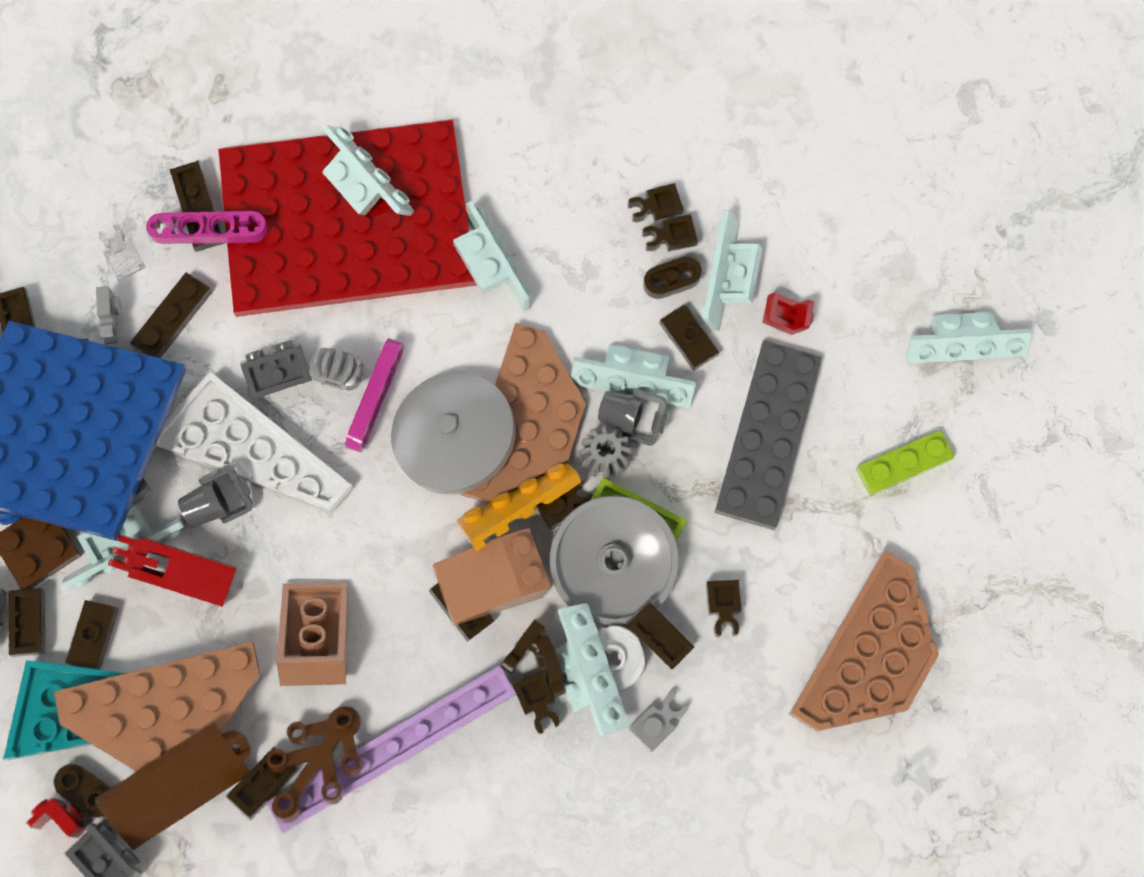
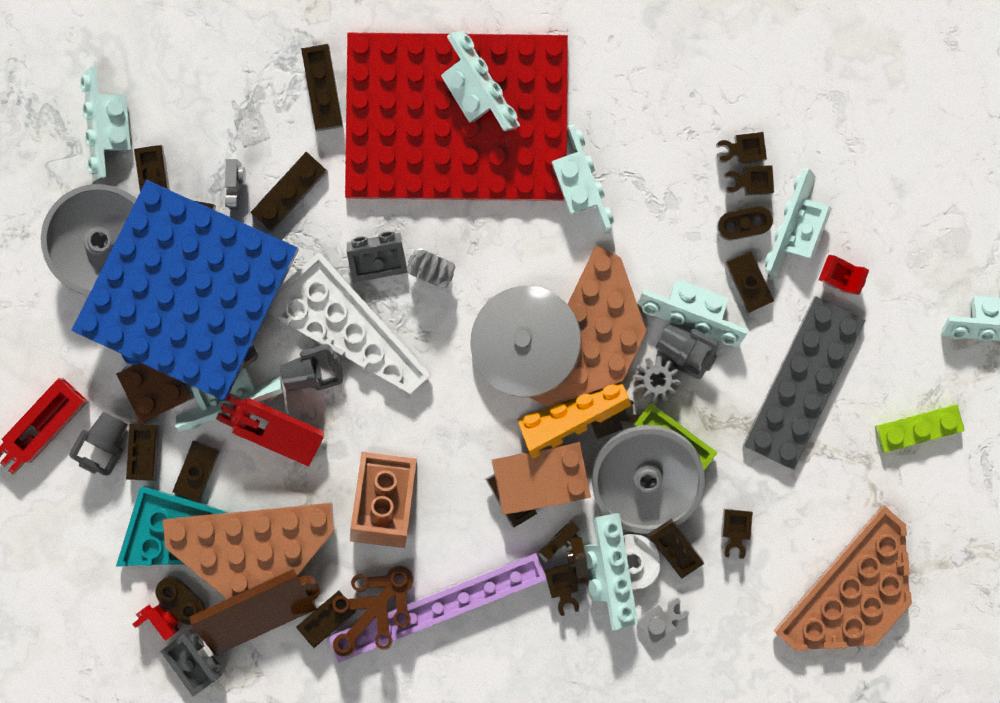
camera: 10 degrees right, 15 degrees up
(207, 225) = (330, 111): dark pink beam -> none
(374, 395) = (461, 294): dark pink beam -> none

